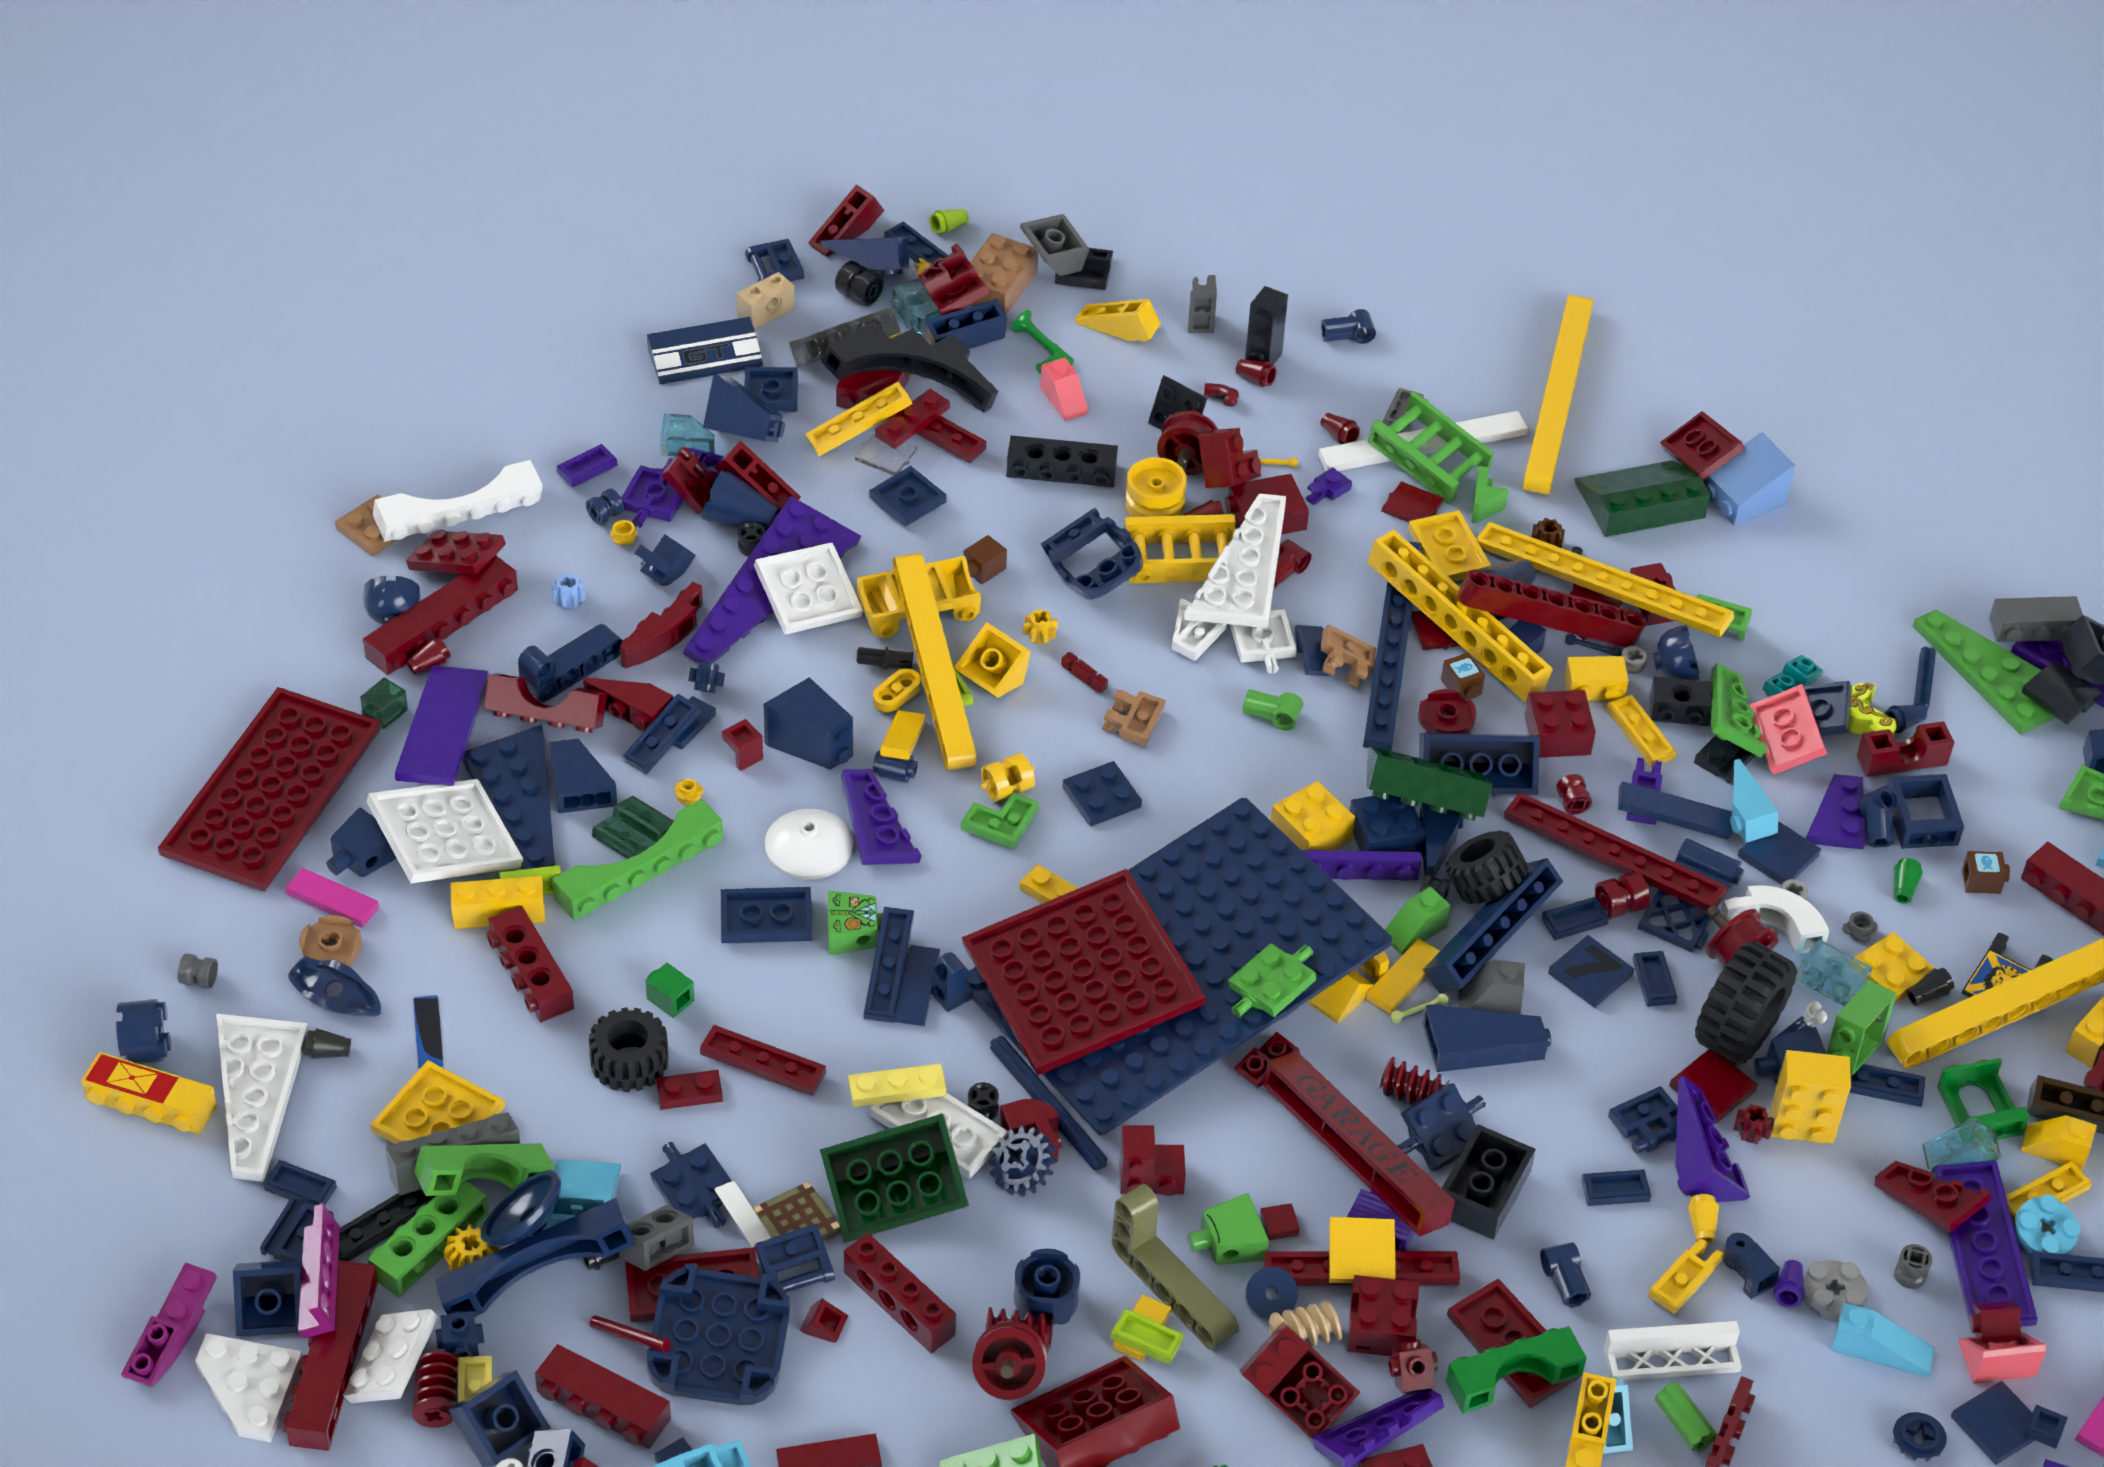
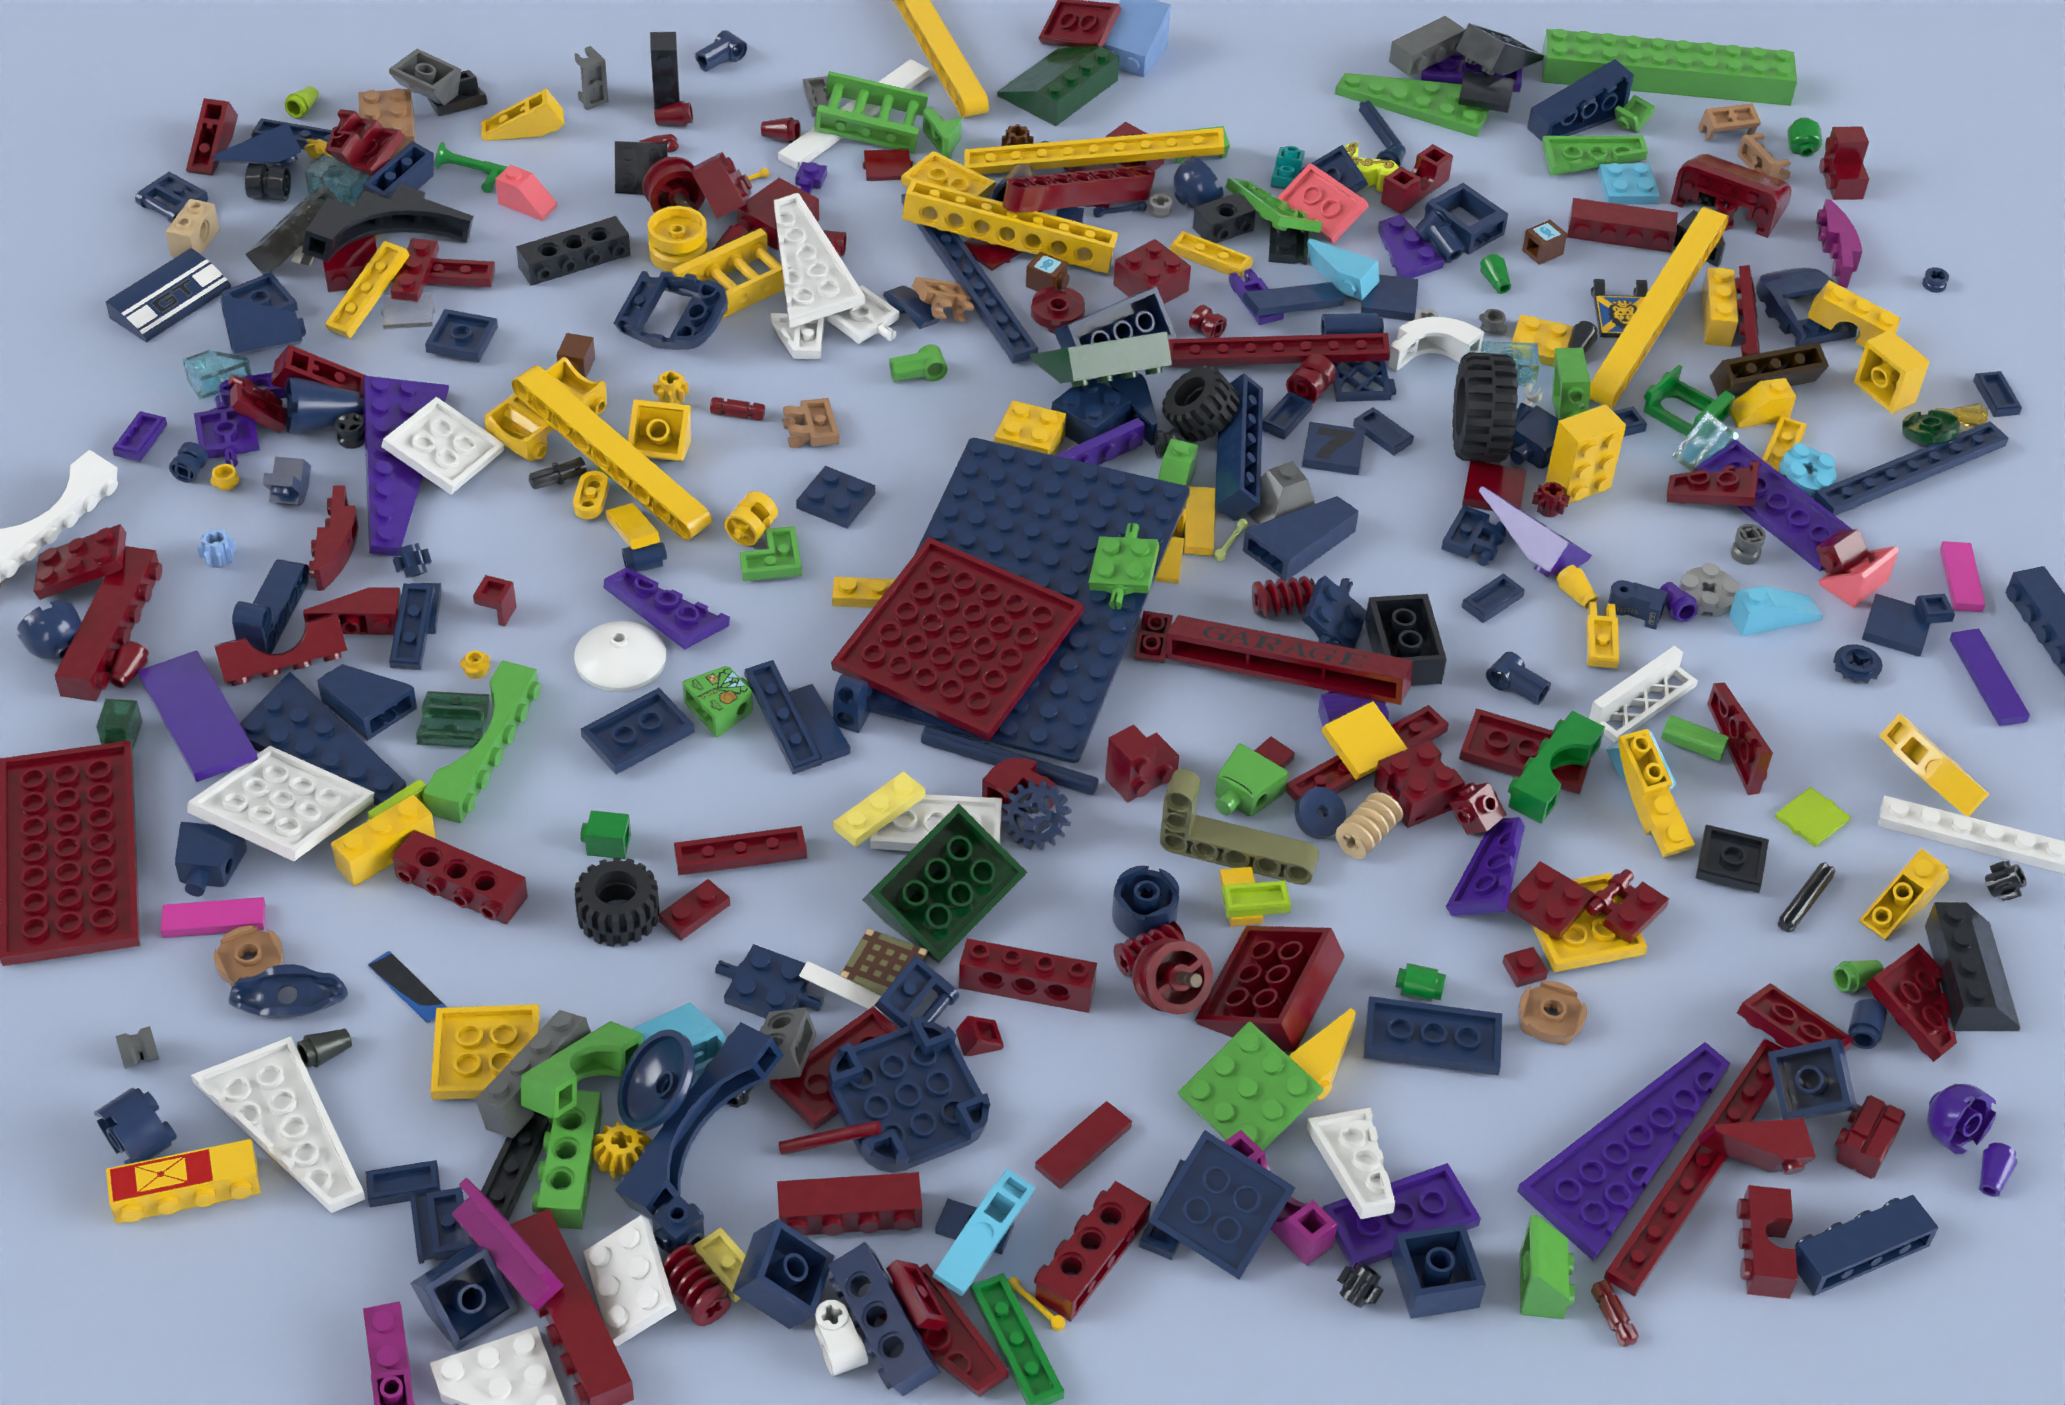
camera: 35 degrees left, 0 degrees up
(809, 725) = (548, 554): dark blue slope -> none
(983, 1094) = (955, 779): black wheel -> none
(1299, 1381) = (1403, 865): dark red slope -> none
(1600, 676) = (1148, 224): yellow brick -> none
(1736, 932) = (1429, 369): dark red wheel -> none

